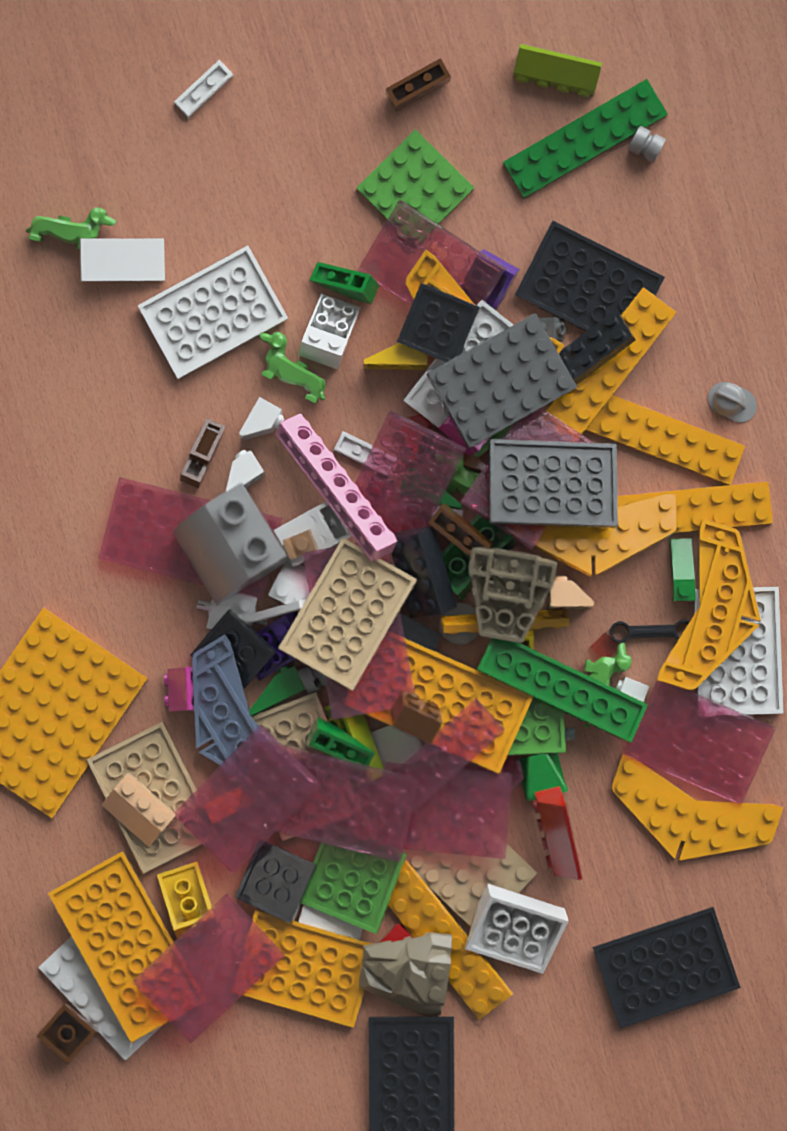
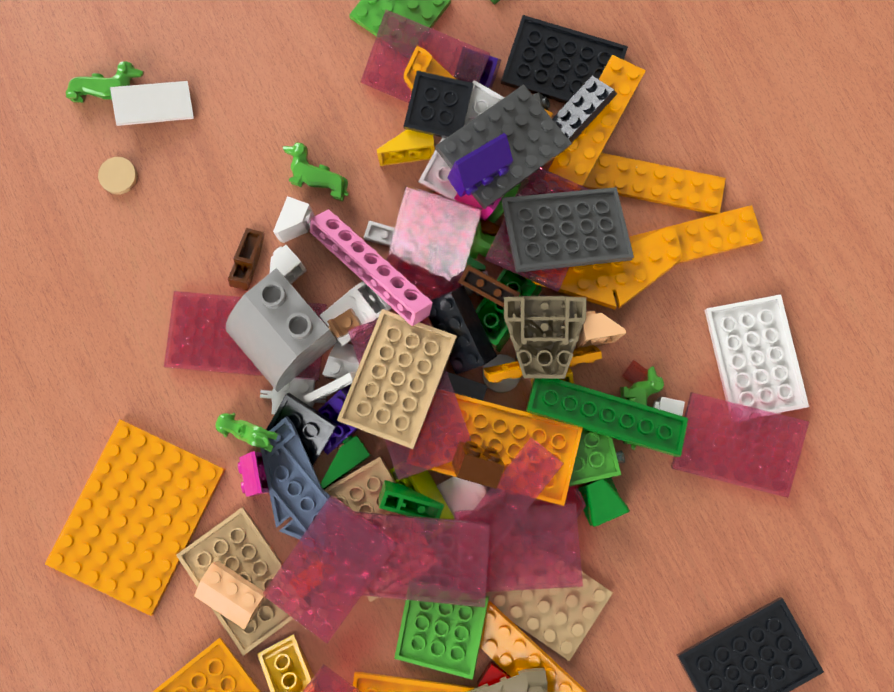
camera: 10 degrees left, 5 degrees down
(71, 334) = (117, 175): none -> tan tile
(179, 643) = (245, 431): none -> bright green animal
(213, 312) = (239, 137): white plate -> none
(276, 881) = (370, 643): black plate -> none
(312, 679) = (374, 445): light grey wheel -> none
(327, 922) = (416, 672): white tile -> none
(329, 331) = (343, 138): white slope -> none
(346, 282) = (355, 93): green slope -> none
(471, 408) = (481, 166): none -> dark purple slope
(516, 928) = (604, 650): white slope -> none
(557, 833) = (628, 553): red slope -> none
(647, 631) = (675, 352): black piece -> none
(676, 816) = (755, 522): light orange wing -> none
(682, 570) = (692, 295): slope -> none
(723, 599) = (737, 314): light orange wing -> none
(732, 401) = (705, 143): light grey piece -> none

